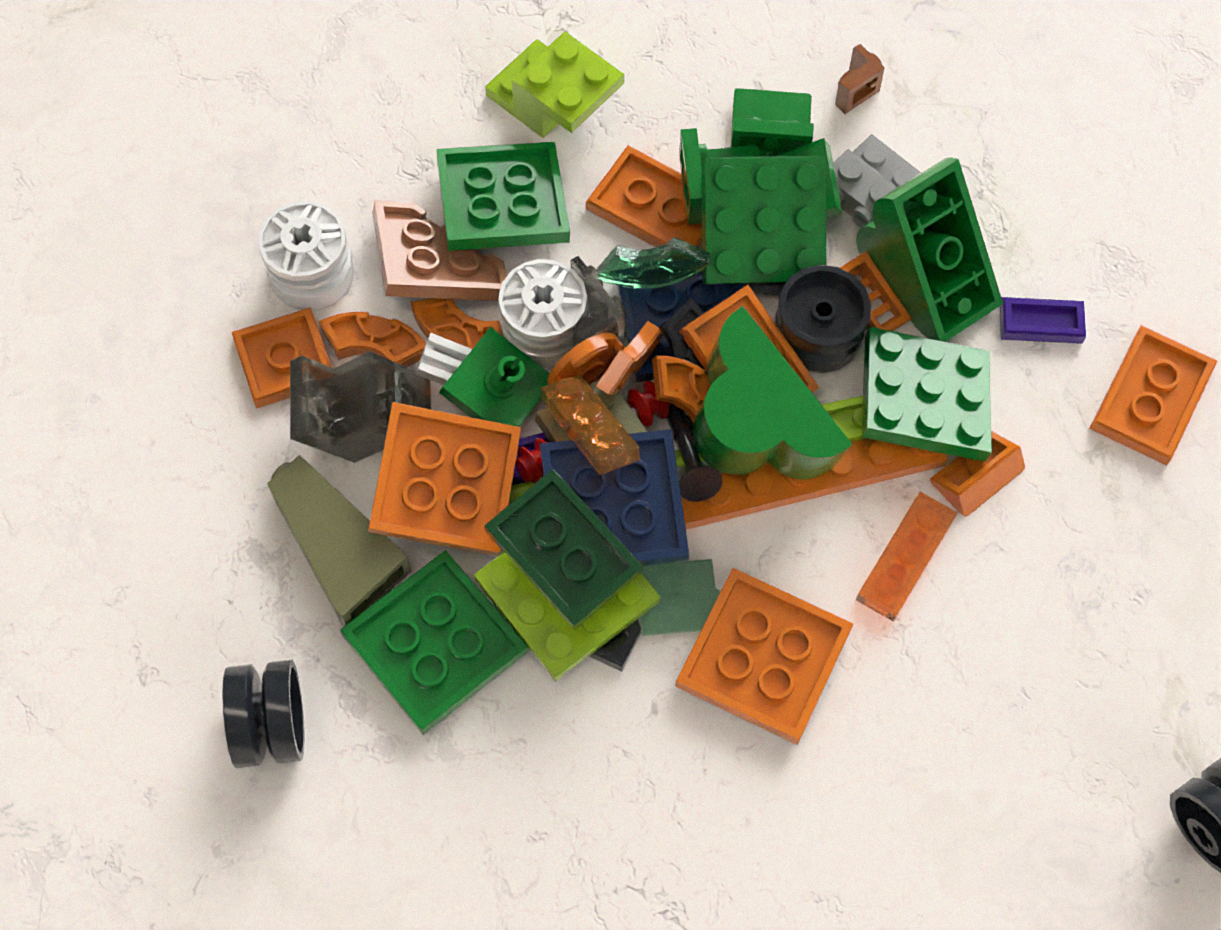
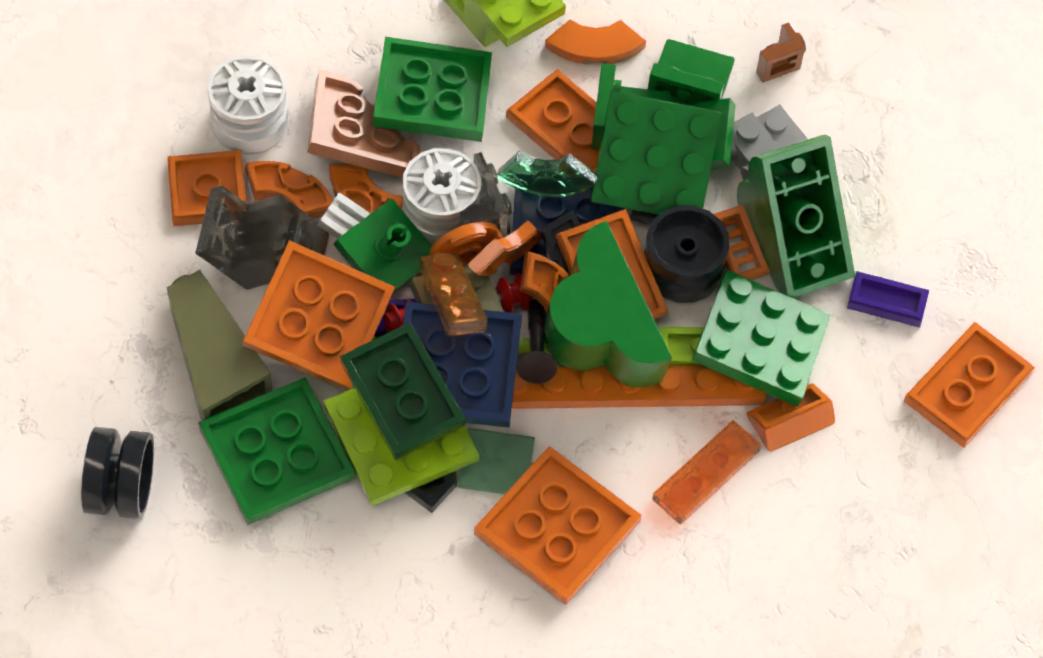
camera: 10 degrees right, 5 degrees down
(659, 110) = (598, 44): none -> orange tile

